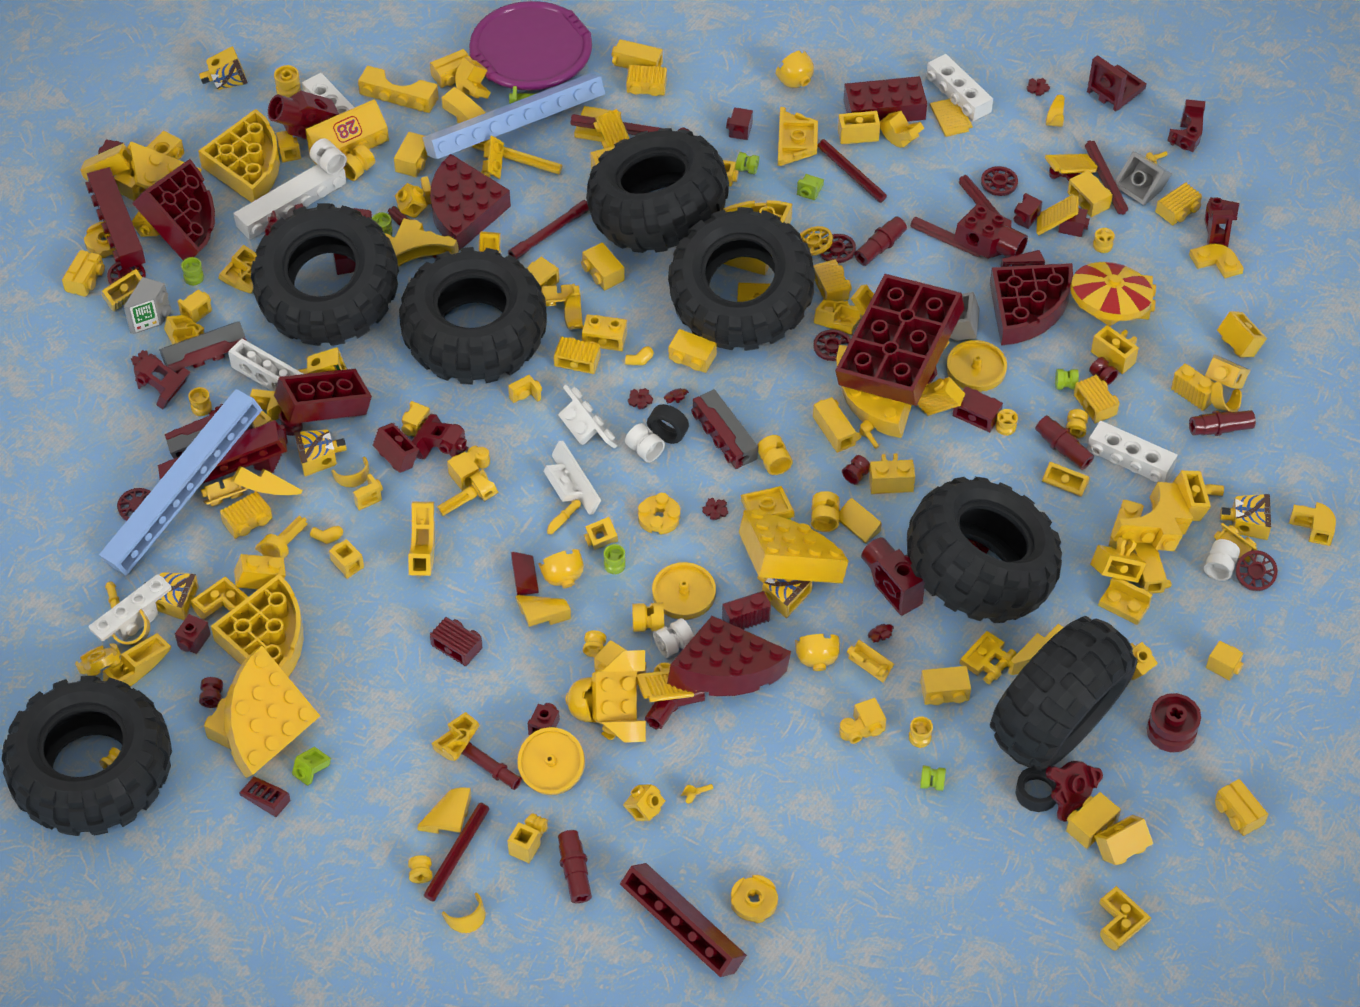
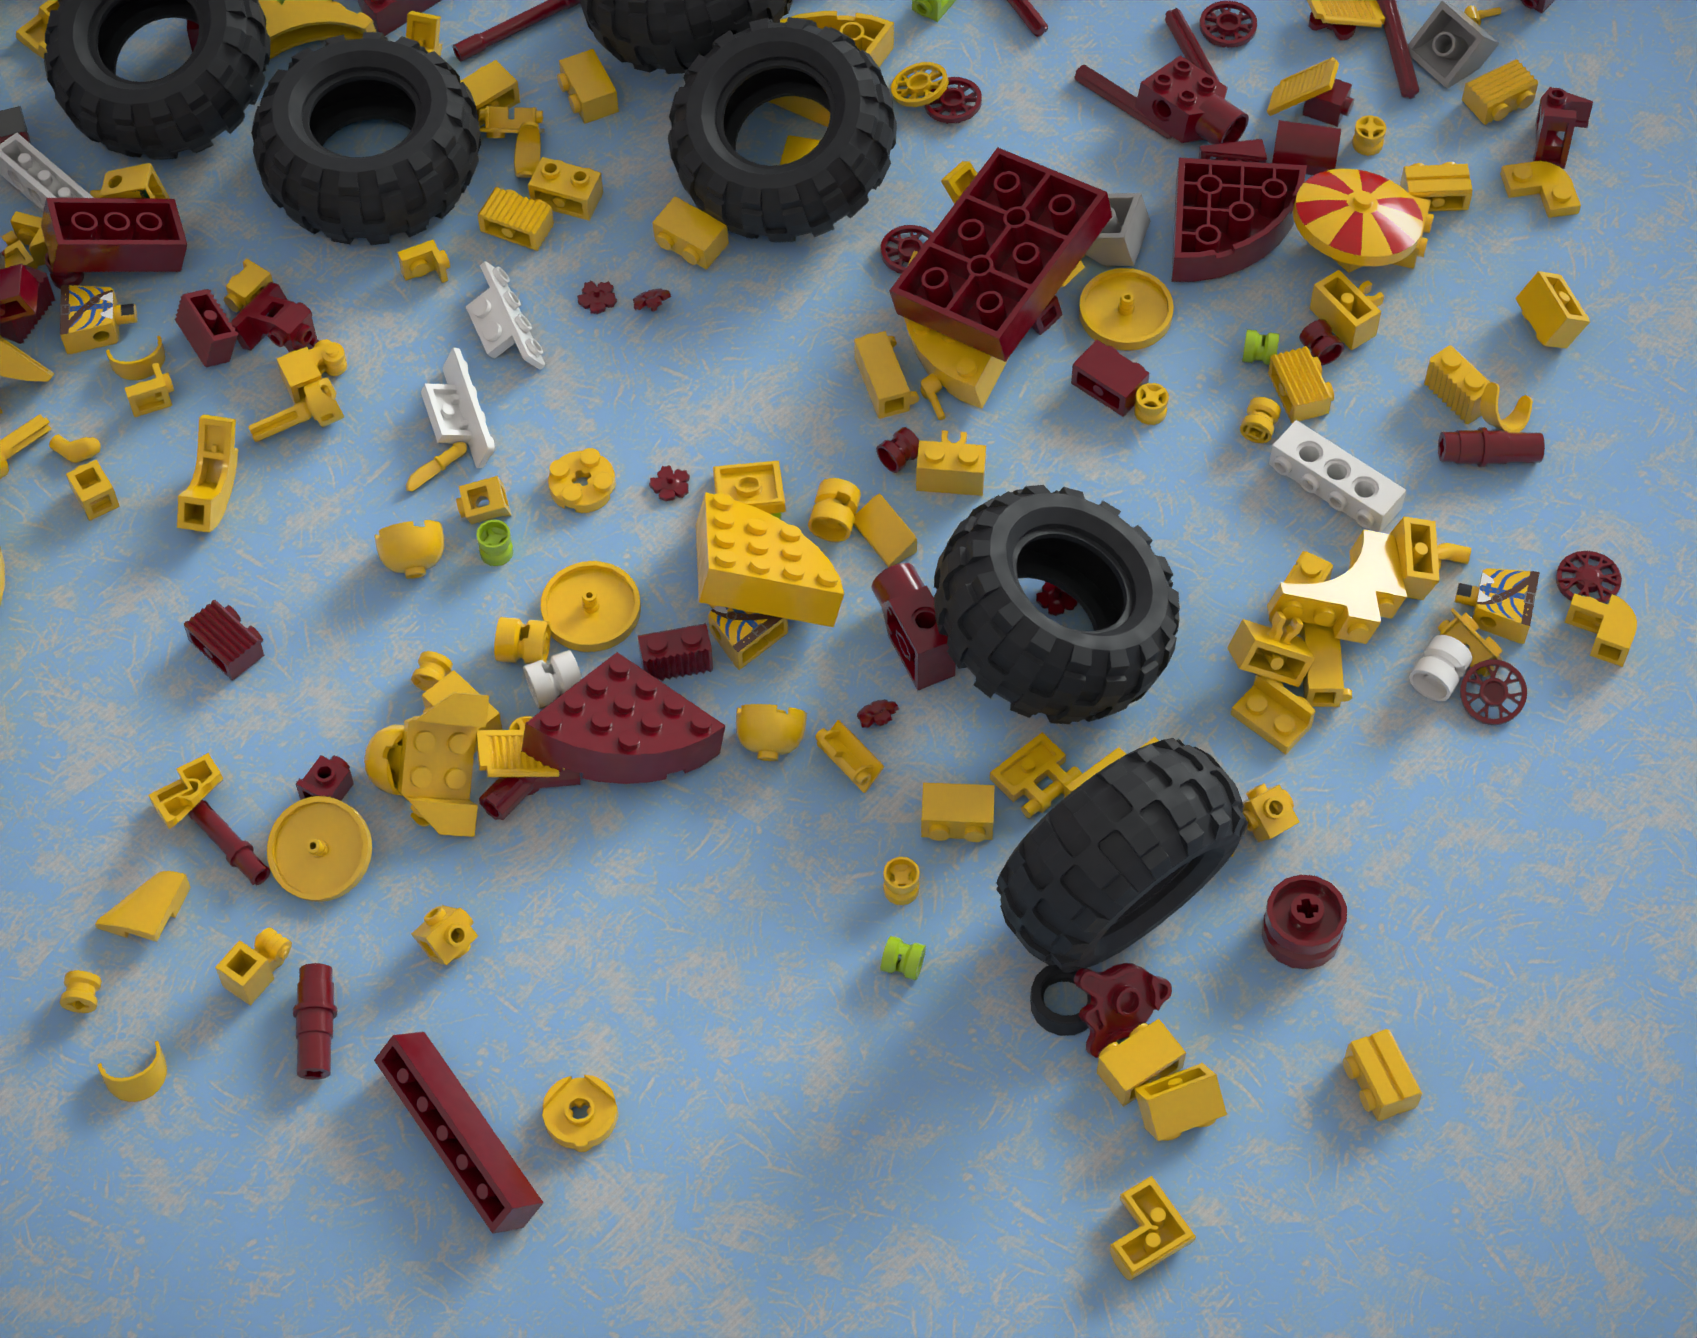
camera: 10 degrees right, 5 degrees up
(456, 852) = (143, 971): dark red axle -> none
(524, 573) = (354, 547): dark red slope -> none
(543, 609) = (367, 606): yellow slope -> none
(641, 357) = (613, 234): yellow arm -> none
(644, 442) = (584, 366): white wheel -> none
(672, 416) = (624, 342): black tyre -> none
(691, 792) = (525, 926): yellow hand -> none
(724, 429) = (711, 360): piece -> none
(774, 455) = (777, 410): yellow wheel -> none
(831, 281) = (930, 150): yellow brick -> none
(837, 316) = (921, 202): yellow slope -> none
(868, 722) = (824, 853): yellow brick -> none
(881, 240) = (1021, 95): dark red piece -> none
(941, 396) = (1051, 350): yellow brick -> none
(1027, 211) = (1259, 76): dark red brick -> none
(1064, 442) = (1233, 447): dark red piece -> none
(1065, 479) = (1224, 506): yellow slope -> none
(1067, 250) = (1307, 146): none -> dark red brick
(1091, 193) = (1364, 59): yellow brick -> none
(1157, 264) = (1444, 184): none -> yellow brick
(1225, 660) = (1410, 831): yellow brick -> none
(1227, 372) = (1512, 367): yellow torso -> none
(1297, 494) = (1588, 577): none -> dark red wheel

